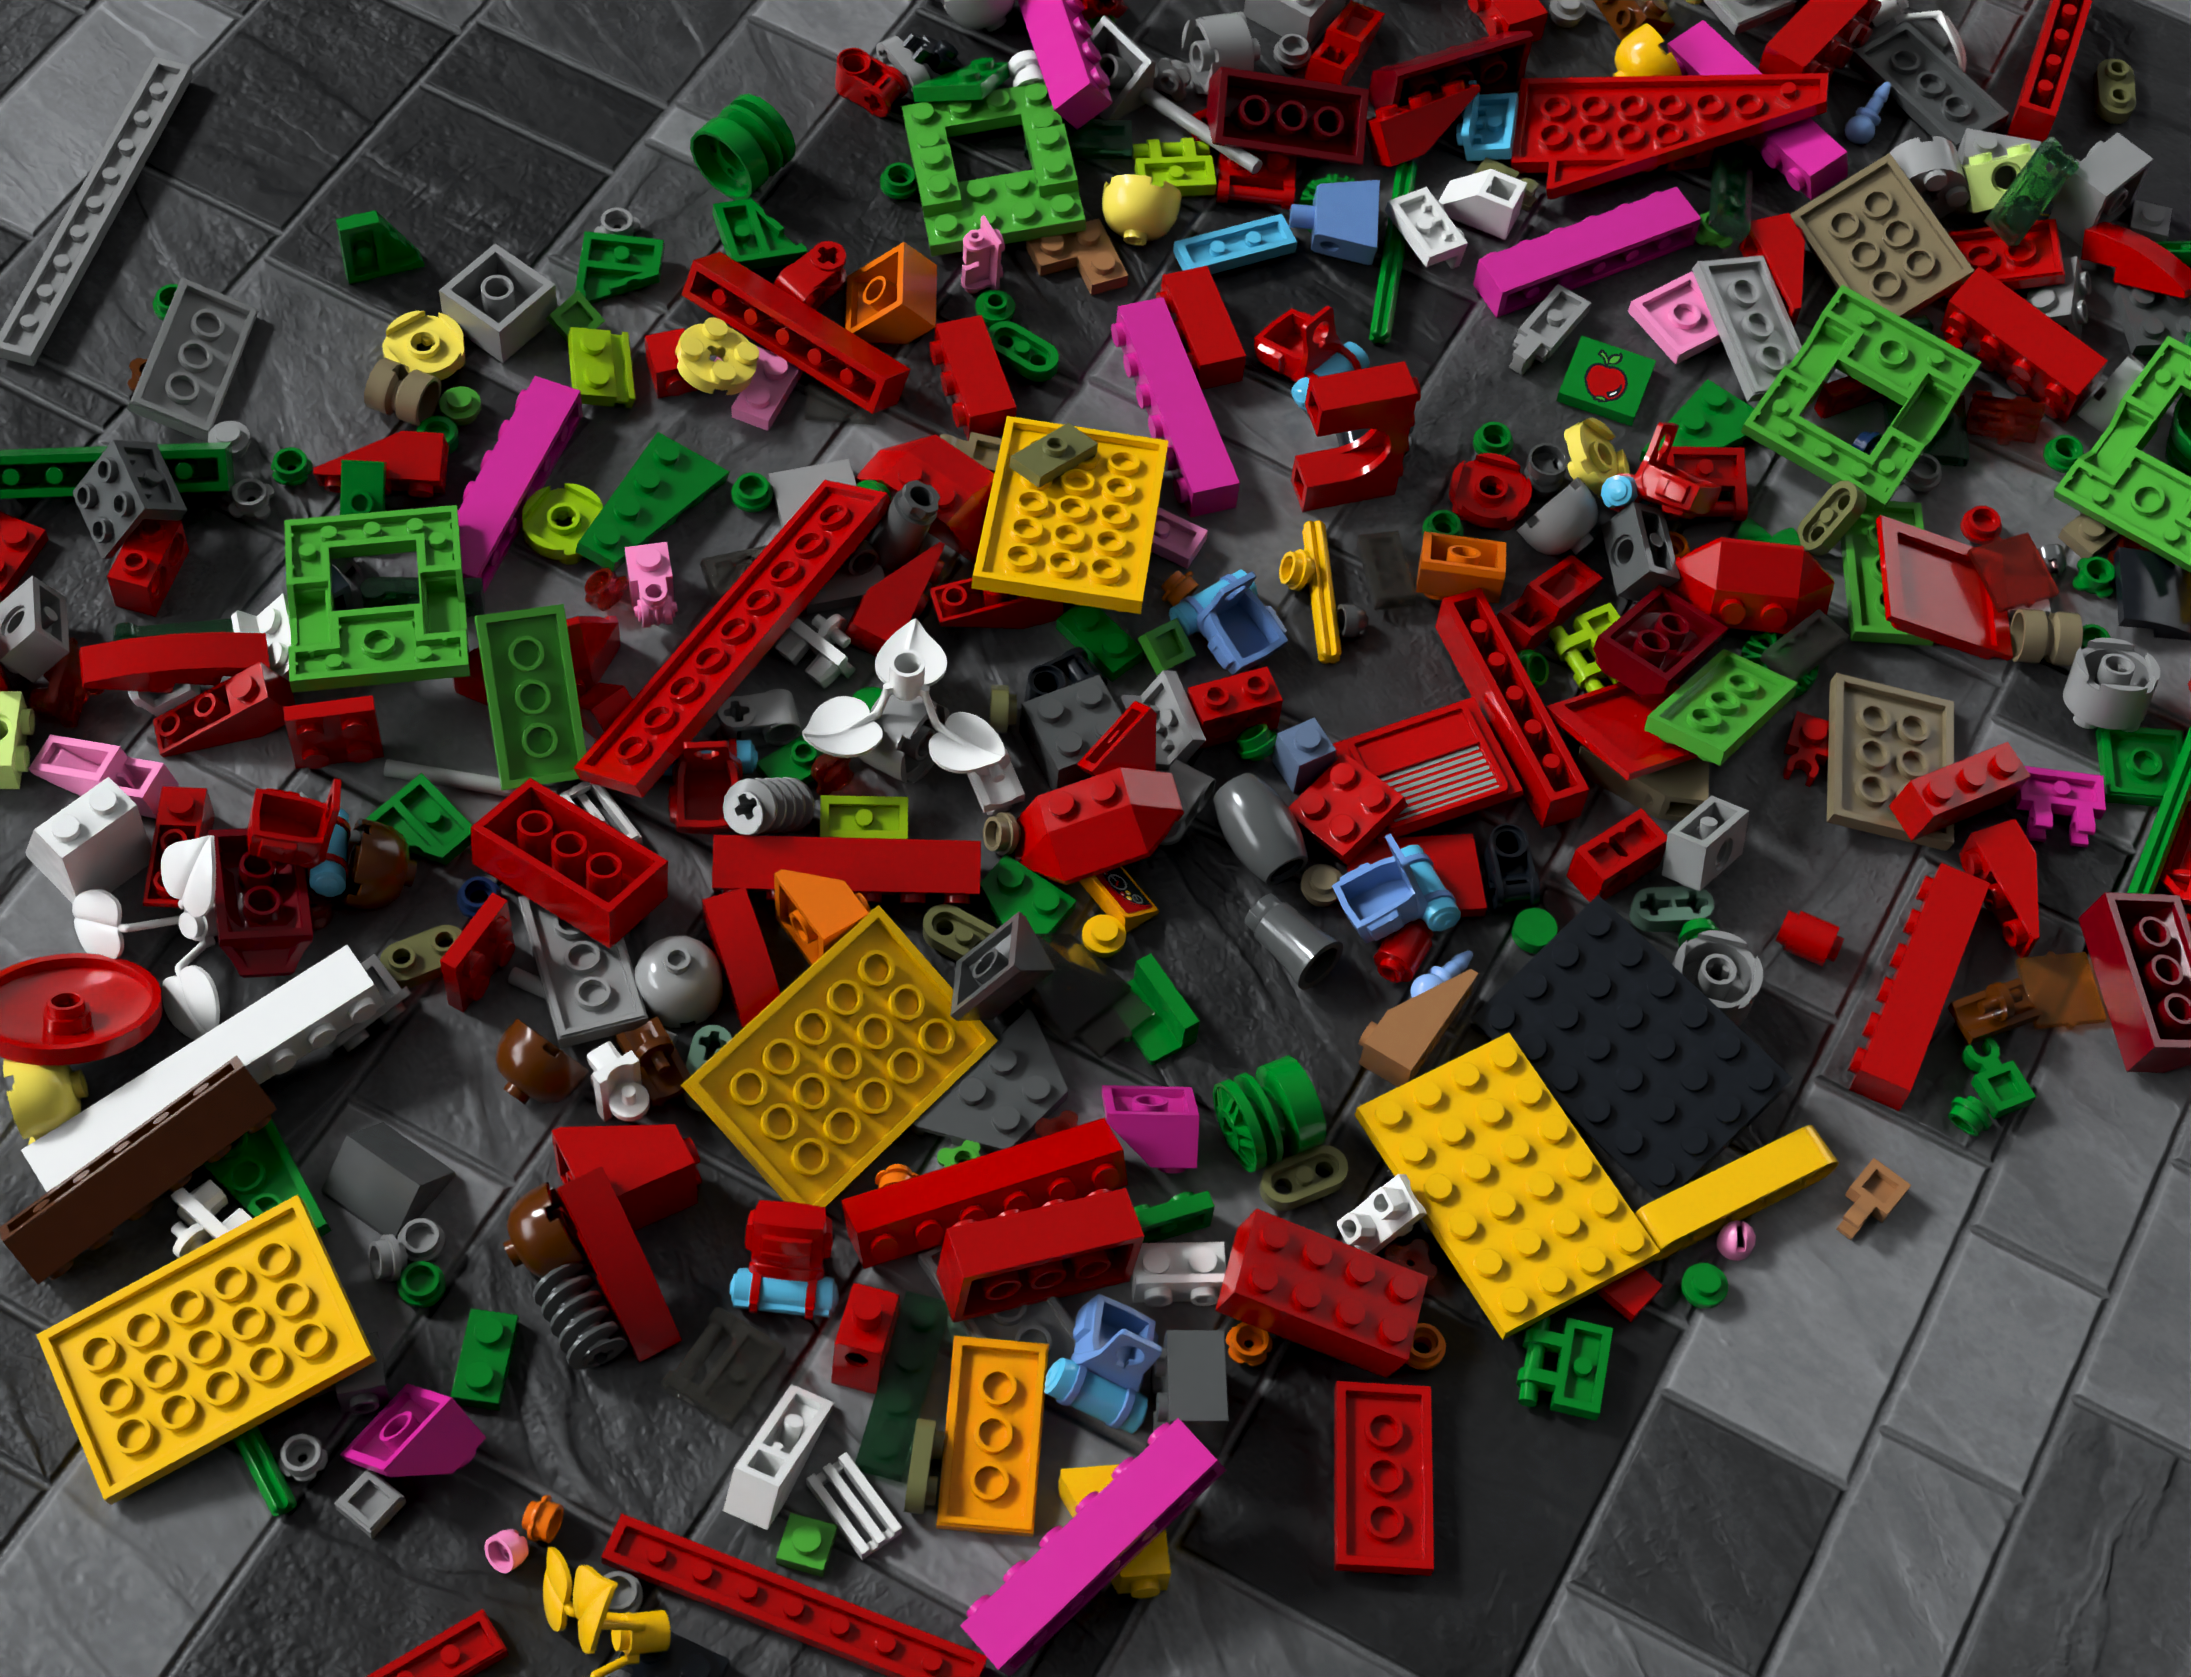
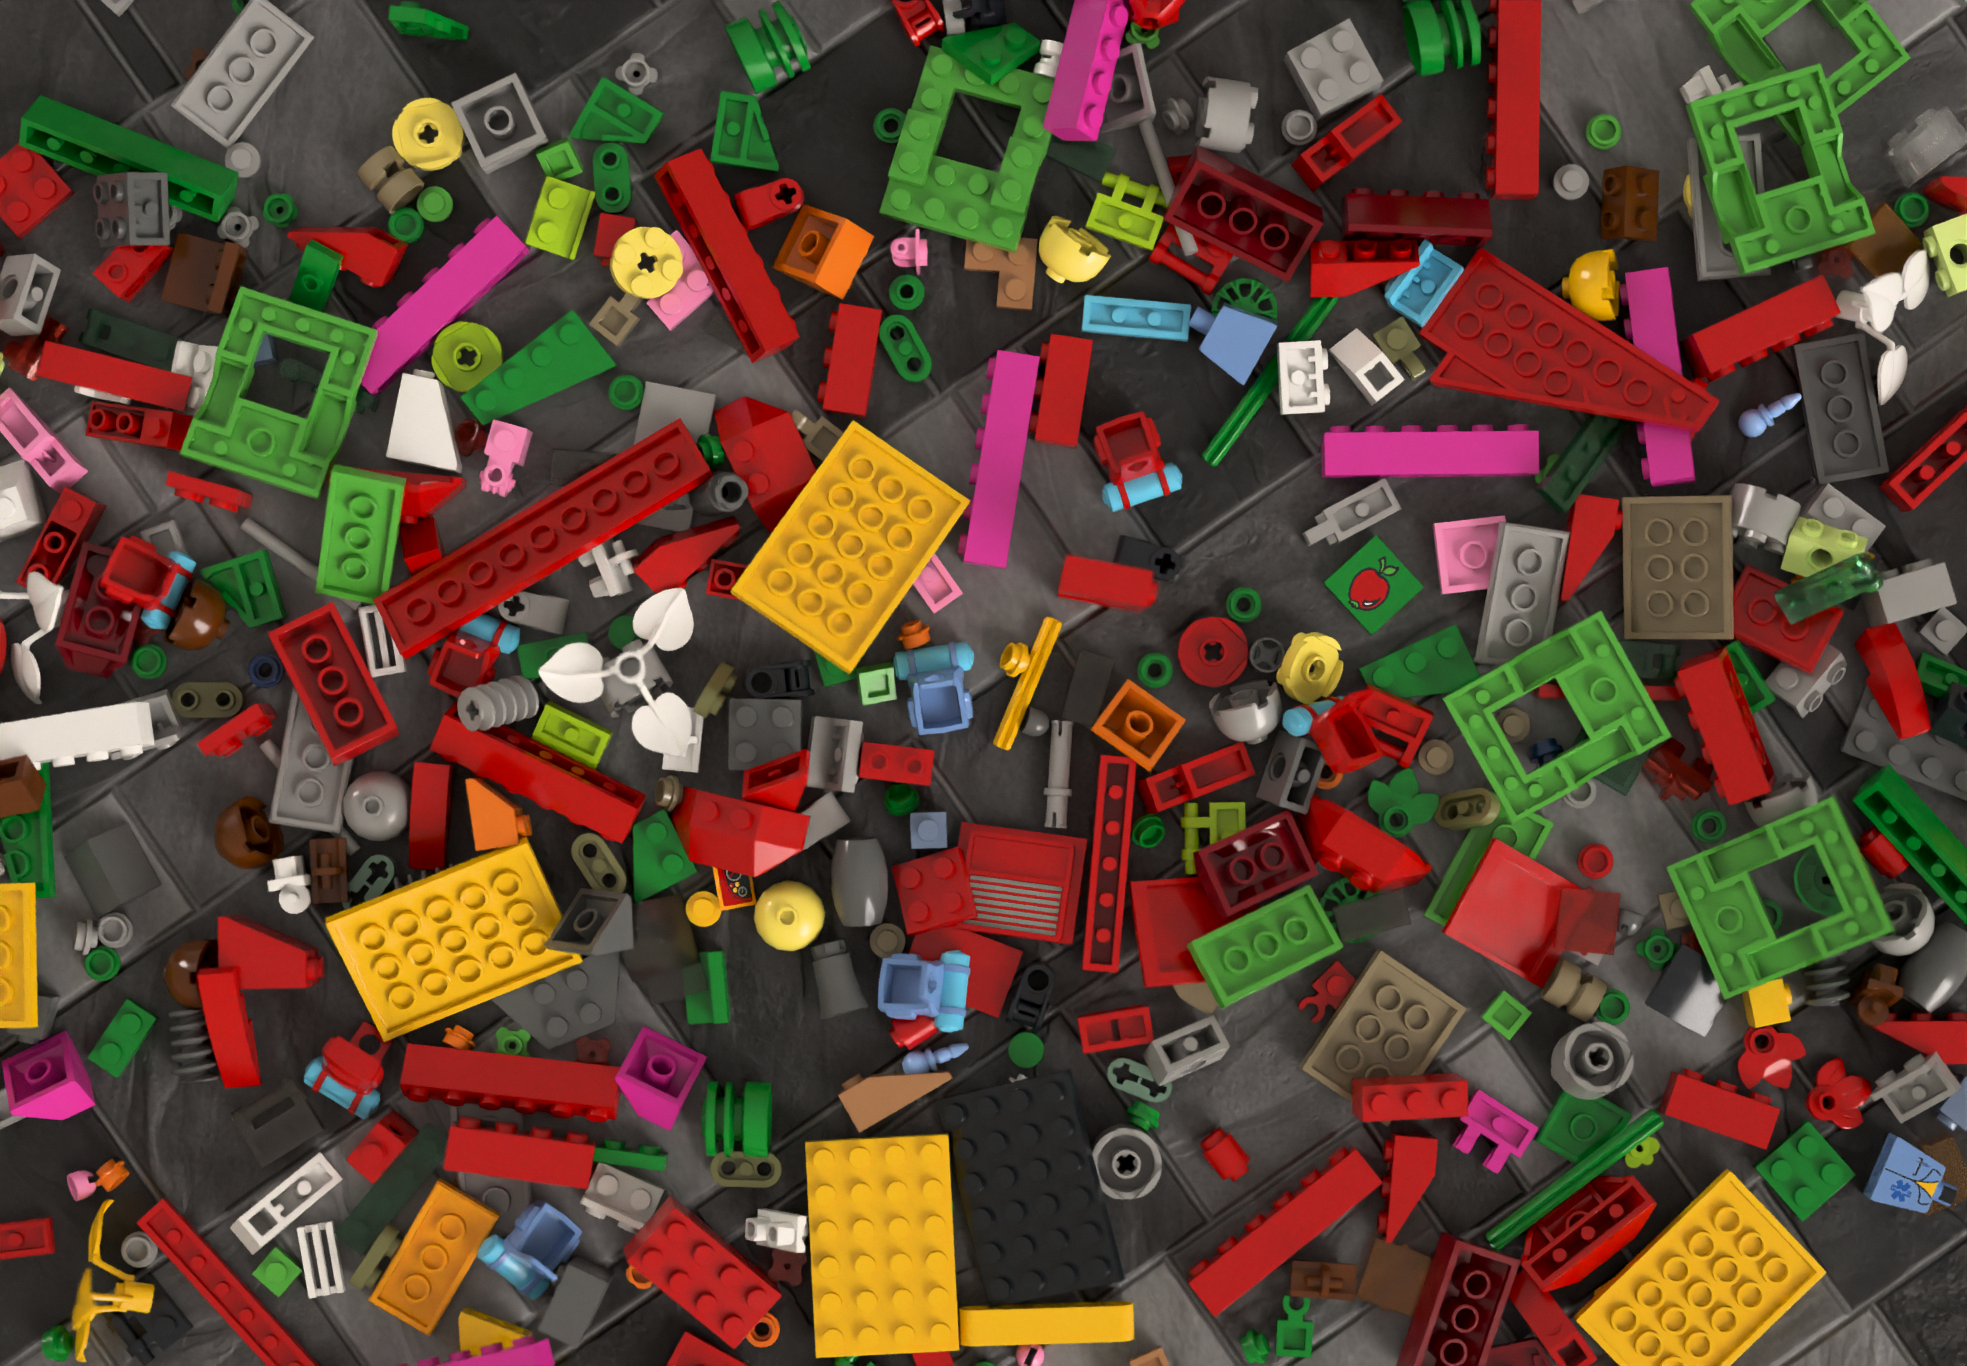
camera: 30 degrees right, 30 degrees up
(234, 551) = (204, 275): none -> reddish brown bracket
(333, 937) = (149, 661): none -> green plate
(543, 579) = (423, 425): none -> white slope
(634, 313) = (612, 177): none -> green plate
(709, 430) = (616, 318): none -> dark tan plate
(1053, 455) = (864, 484): olive plate -> none
(1202, 903) = (789, 915): none -> light yellow cylinder
(1413, 670) = (1059, 774): none -> light grey pin
(1767, 498) = (1435, 757): none -> dark tan plate
(1995, 691) = (1505, 1014): none -> bright green plate

